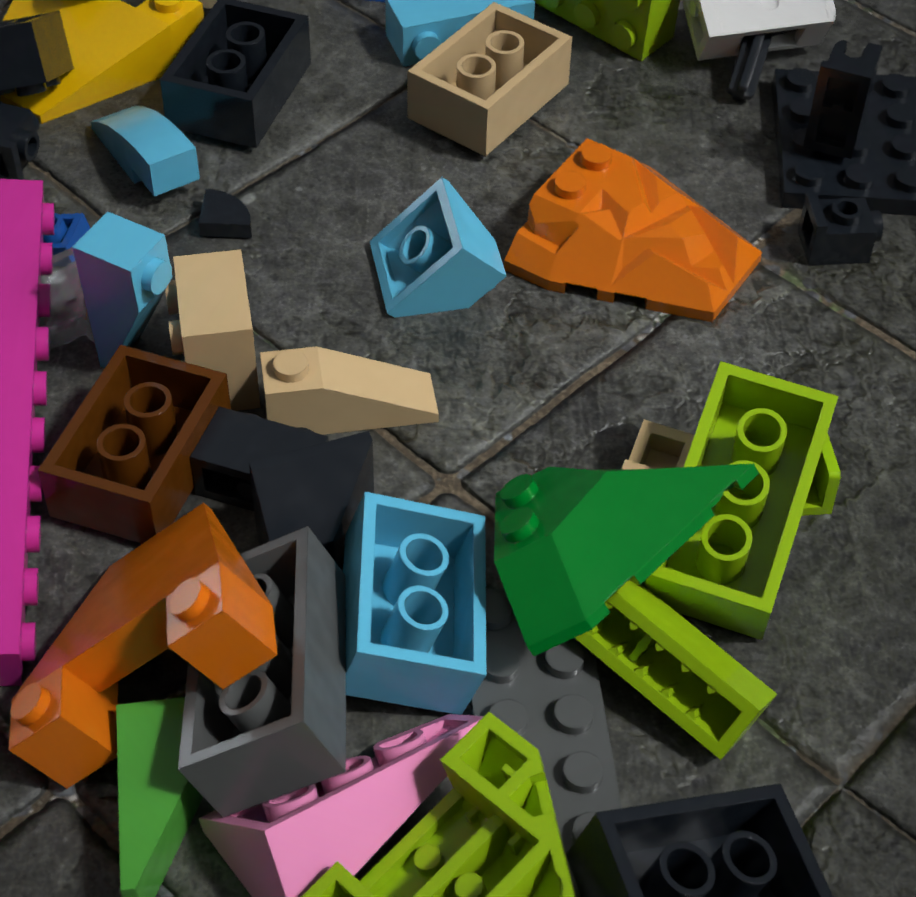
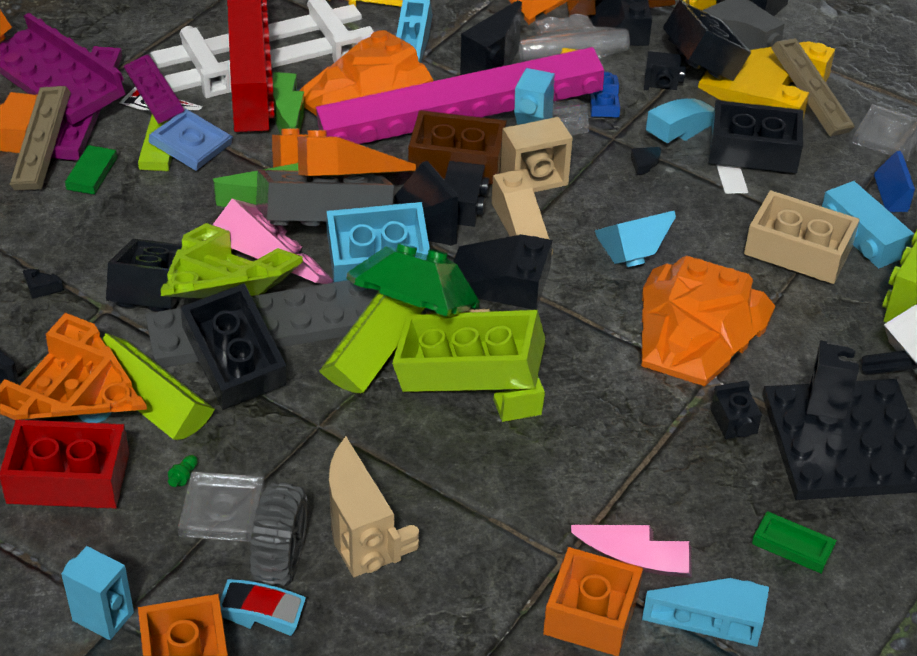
camera: 80 degrees right, 5 degrees down
(297, 135) = (732, 179): none -> white sticker
(484, 430) = (507, 269): none -> black slope

